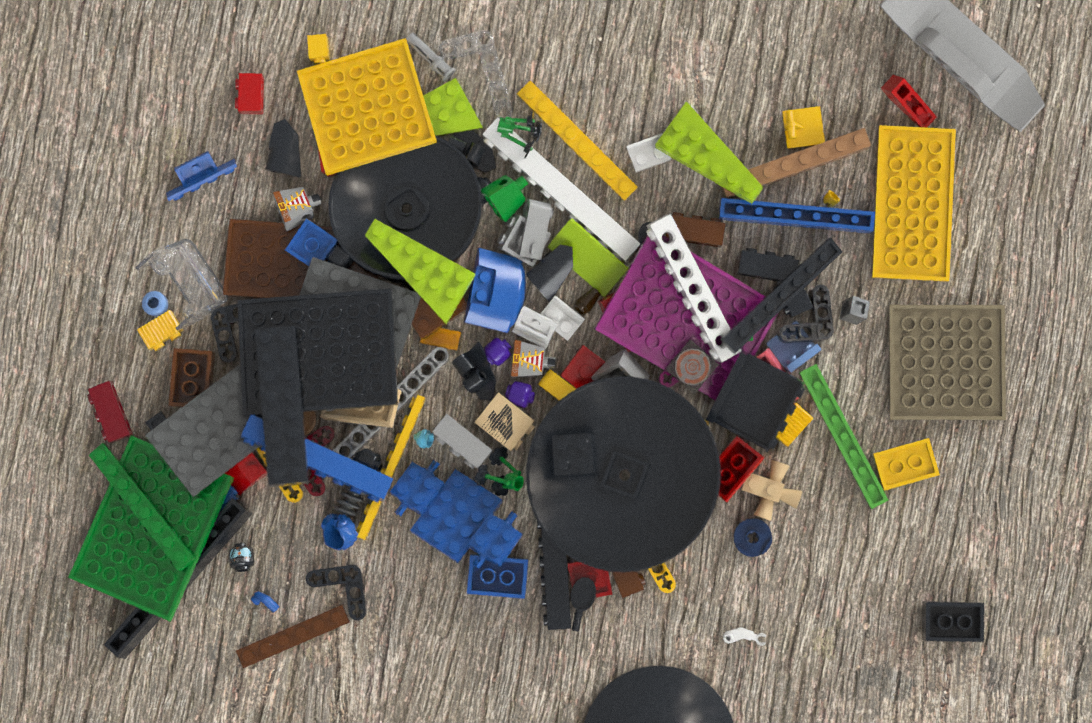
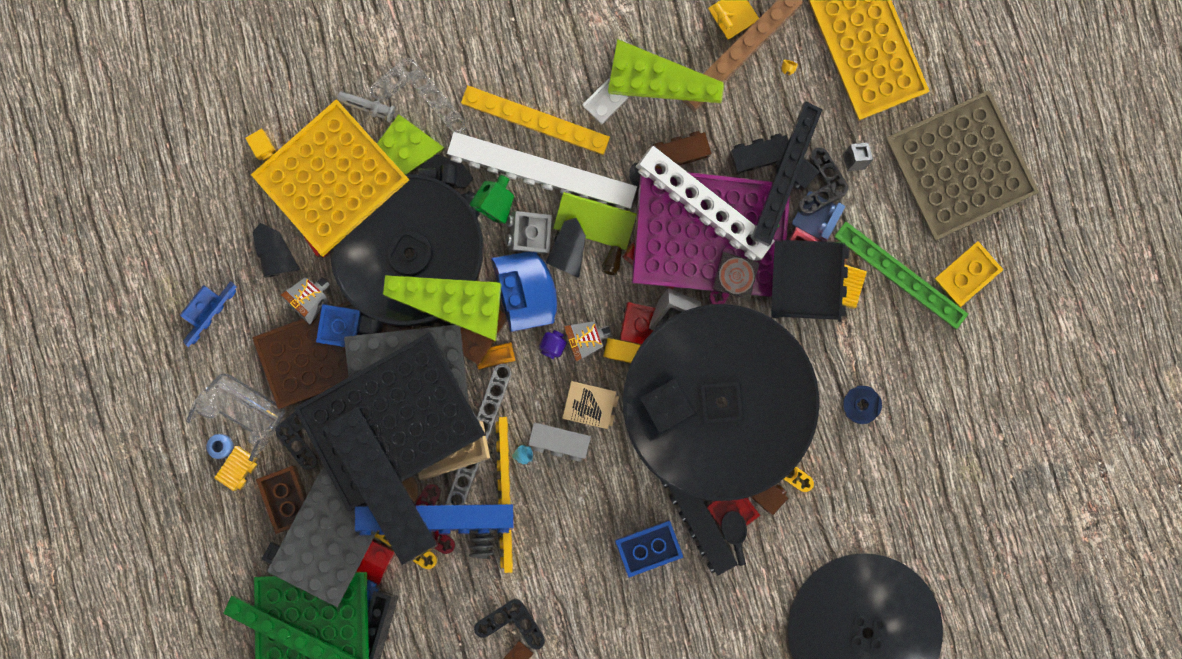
camera: 30 degrees left, 0 degrees up
(109, 412) = (224, 565): dark red brick -> none
(241, 557) = (407, 641): head -> none
(250, 93) = (217, 214): red brick -> none
(338, 531) = (485, 575): blue hair -> none
(369, 458) = (482, 496): black head -> none
(456, 515) = (585, 510): blue piece -> none
(476, 372) = (542, 372): black panel -> none
(503, 483) = (613, 461): plant -> none
(507, 125) = (466, 135): plant -> none
(520, 394) = (591, 373): dark purple head -> none
(534, 327) = (576, 306): white plate -> none
(535, 229) = (535, 216): light grey door -> none
(565, 316) = (596, 287): white plate -> none
(736, 466) = (819, 343): red slope -> none
(742, 633) = (893, 495): white arm -> none
(771, 490) = (859, 354): tan brick -> none
(796, 215) = (765, 96): blue brick -> none
(952, 621) = (1078, 396): black brick -> none

